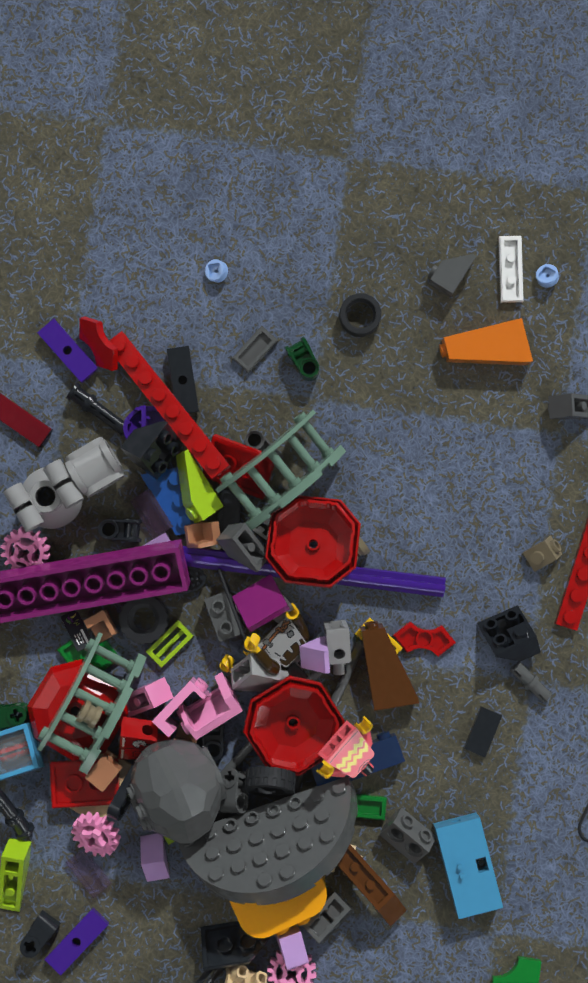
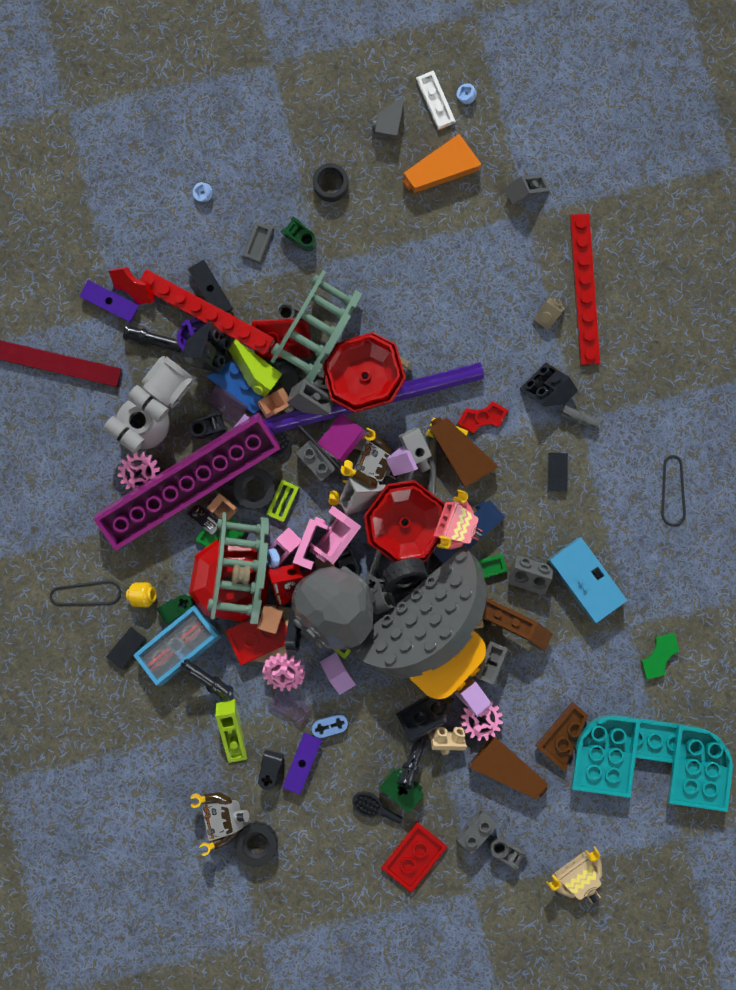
camera: 20 degrees left, 0 degrees up
(123, 905) = (328, 721): none -> medium blue beam
(133, 706) = (273, 558): none -> light blue tile

